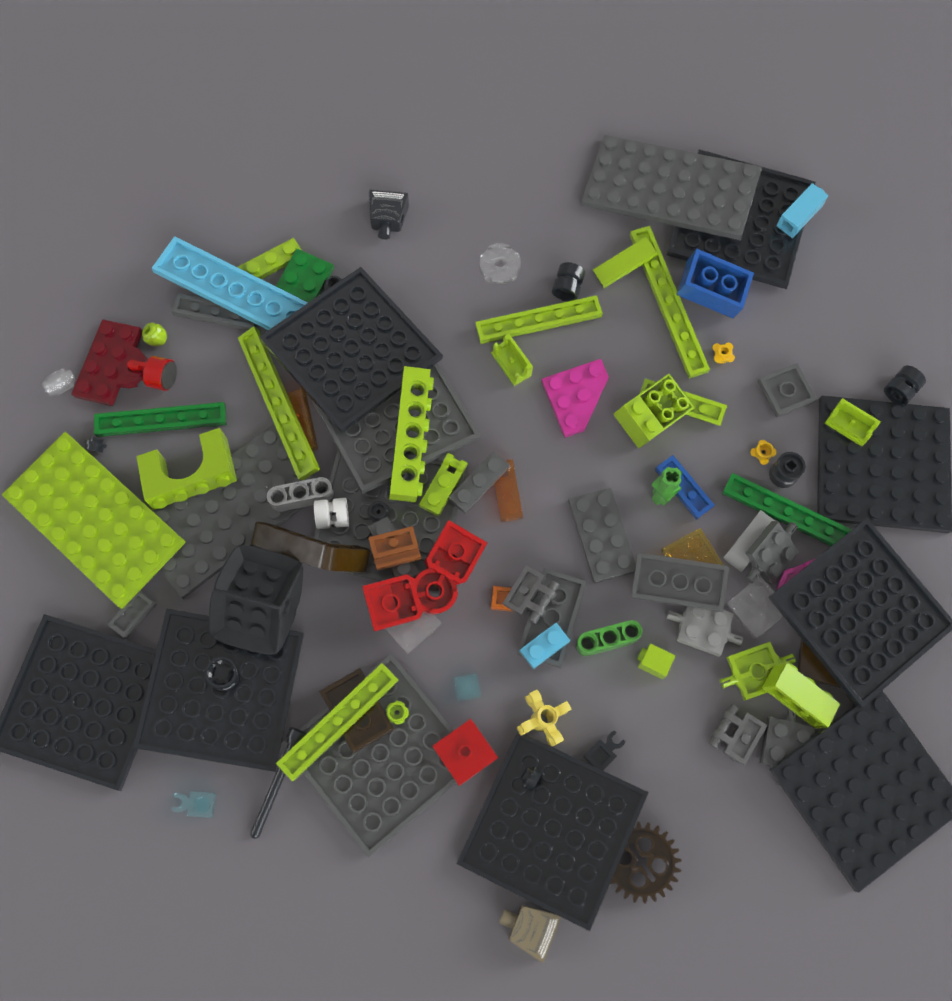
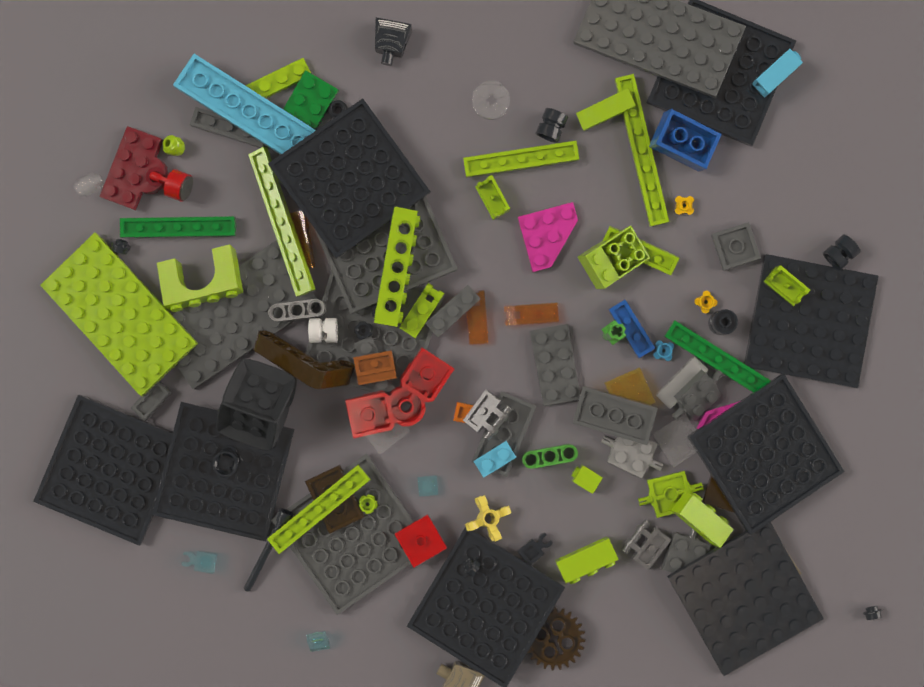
camera: 10 degrees right, 15 degrees up
(346, 894) = (318, 641): none -> clear light blue plate
(569, 481) = (532, 314): none -> clear orange plate
(669, 760) = (587, 560): none -> lime brick
(729, 504) = (667, 354): none -> dark azure plate

